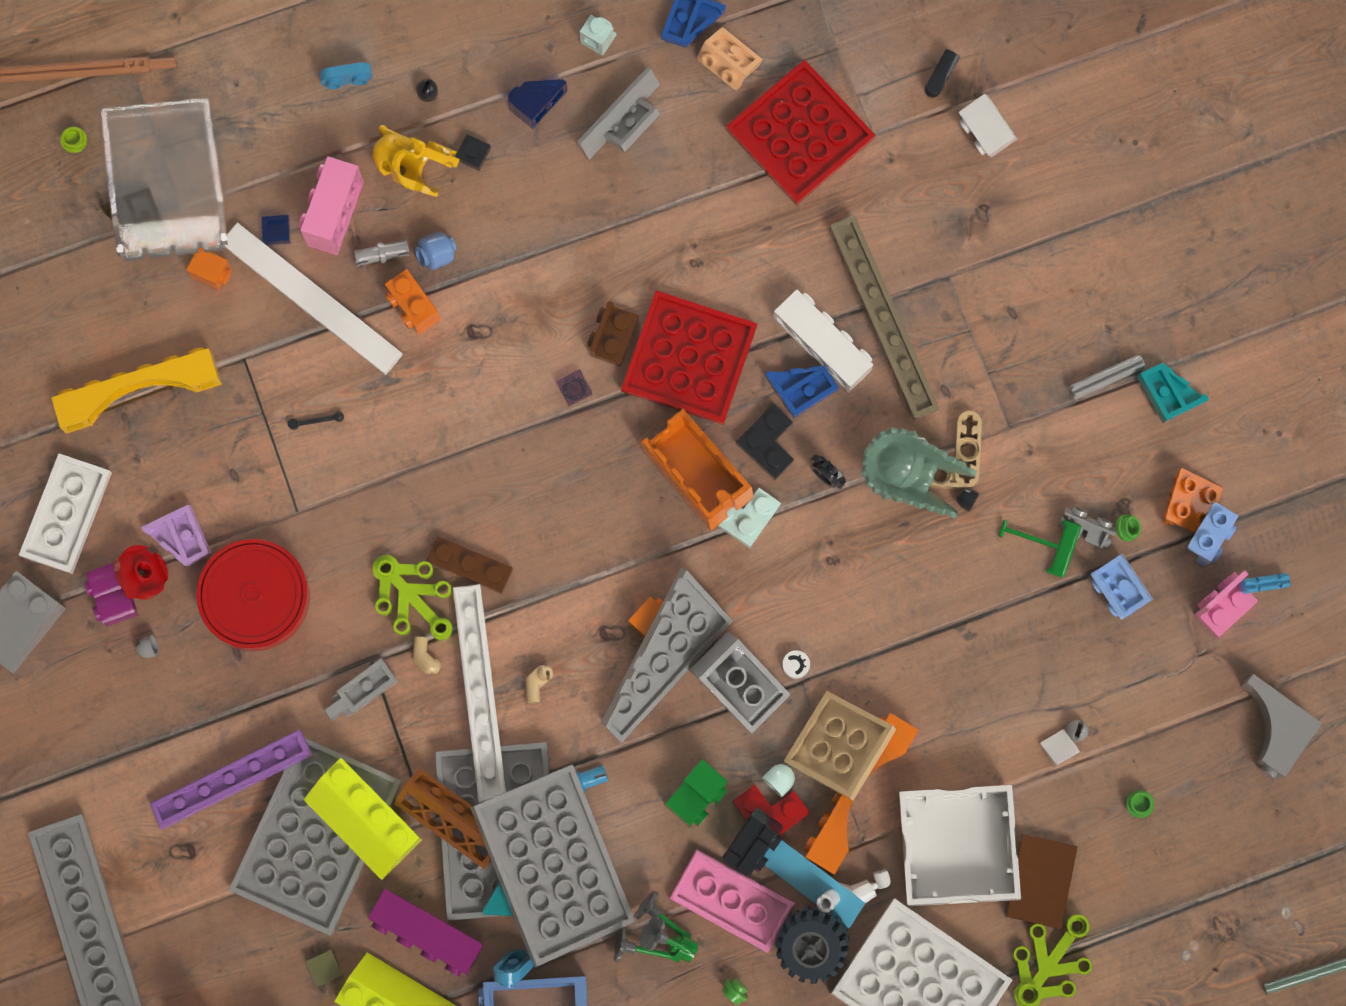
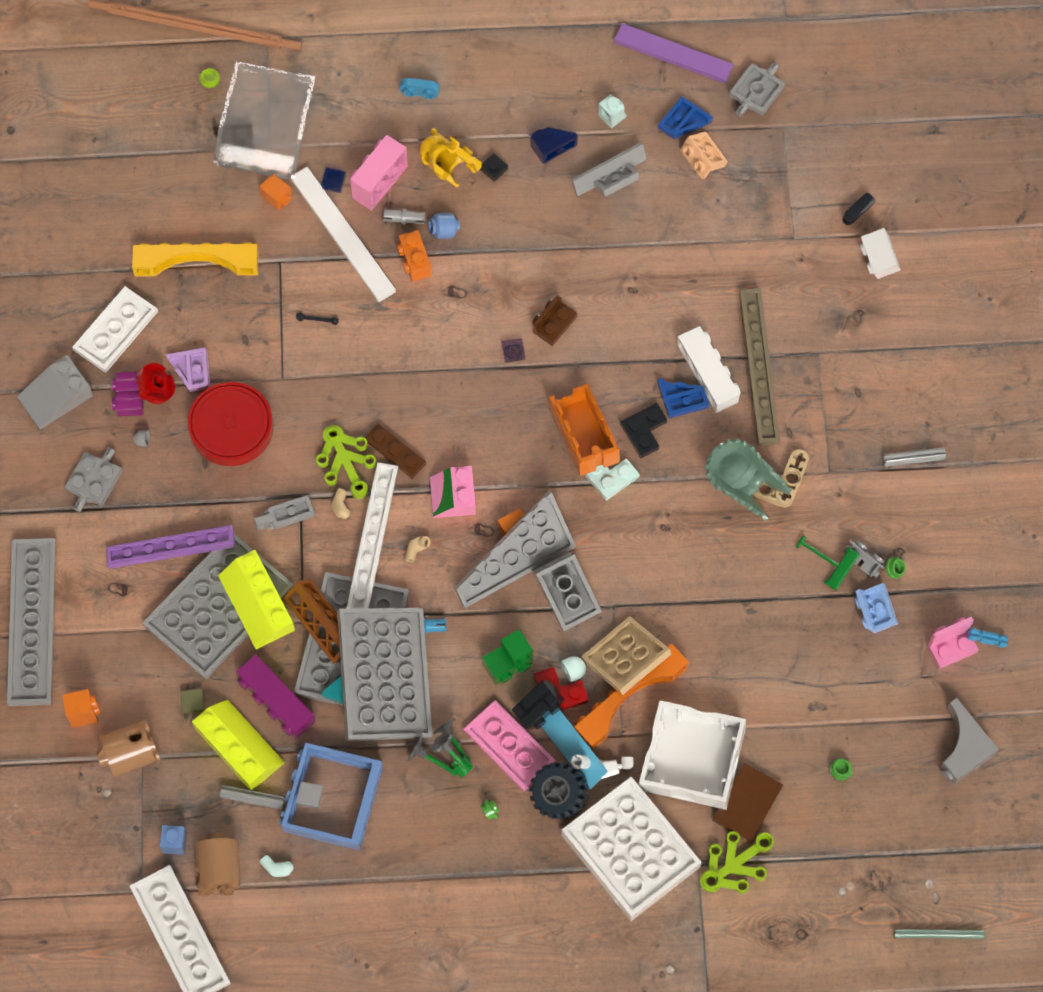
camera: 20 degrees right, 10 degrees down
(104, 719) = (93, 479): none -> light grey plate
(431, 92) = (478, 116): black hinge -> none
(512, 967) = (330, 739): dark azure plate -> none
(559, 598) = (453, 492): none -> bright pink slope
(689, 357) = (605, 352): red plate -> none
(796, 664) = (613, 592): white tile -> none
(800, 132) = (739, 220): red plate -> none
(827, 472) = (680, 460): black gear -> none
(967, 498) = (780, 512): black hinge -> none
(1059, 747) = (792, 711): white slope -> none
(1071, 729) = (814, 705): light grey hinge -> none
(1169, 392) = (958, 481): teal wing -> none
(1190, 500) = (950, 564): orange hinge -> none
(1211, 533) = (958, 588): light blue bracket -> none

